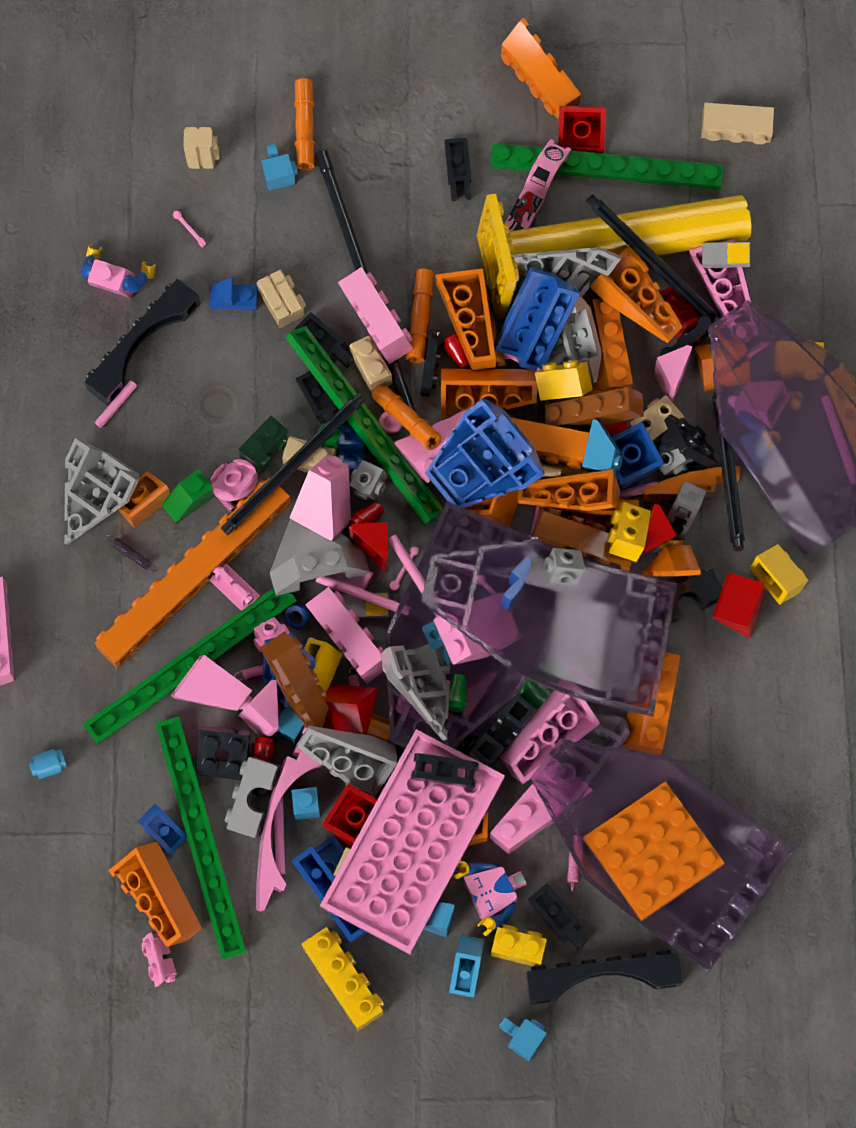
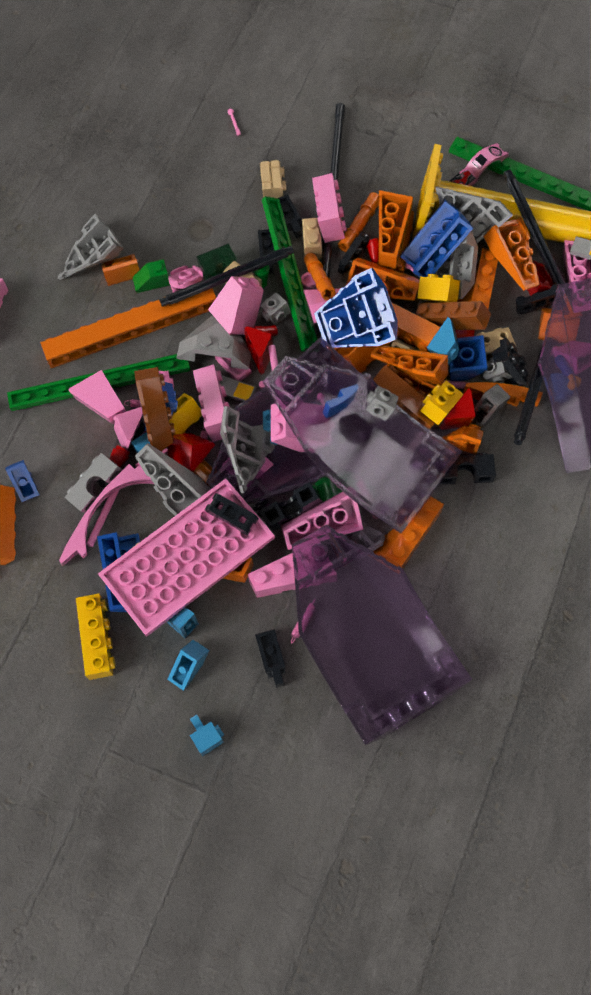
camera: 25 degrees right, 5 degrees down
(114, 277) = (170, 130): torso -> none
(115, 404) = (135, 206): bright pink piece -> none
(131, 553) = (96, 299): clear purple piece -> none
(172, 307) = (198, 161): black arch -> none
(200, 838) = (46, 501): green plate -> none
(201, 147) = (262, 74): tan brick -> none
(214, 738) = (85, 433): black piece -> none
(233, 296) = (242, 170): blue slope -> none
(233, 586) = (152, 343): bright pink hinge -> none
(278, 169) = (307, 105): dark azure brick -> none
(303, 610) = (191, 382): blue piece -> none
(304, 124) = (337, 86): orange piece -> none
(305, 803) = (129, 503): dark azure brick -> none
(349, 814) = (153, 519): red slope -> none
(350, 447) = (273, 285): blue slope -> none
(358, 592) = (234, 378): bright pink bar -> none
(457, 693) = (269, 469): green cone -> none
(458, 166) = (426, 142): black hinge -> none
(491, 892) = (230, 618): torso -> none
(517, 946) = (231, 666): yellow brick -> none
(538, 70) = (507, 102): orange wedge -> none
(582, 128) = (522, 144): red slope -> none
(653, 851) = (362, 636): orange plate -> none
(655, 971) = (243, 704): black arch -> none
(671, 369) = (520, 312): bright pink slope -> none
(740, 604) = (504, 486): red slope -> none
(779, 574) = (541, 477): yellow brick -> none

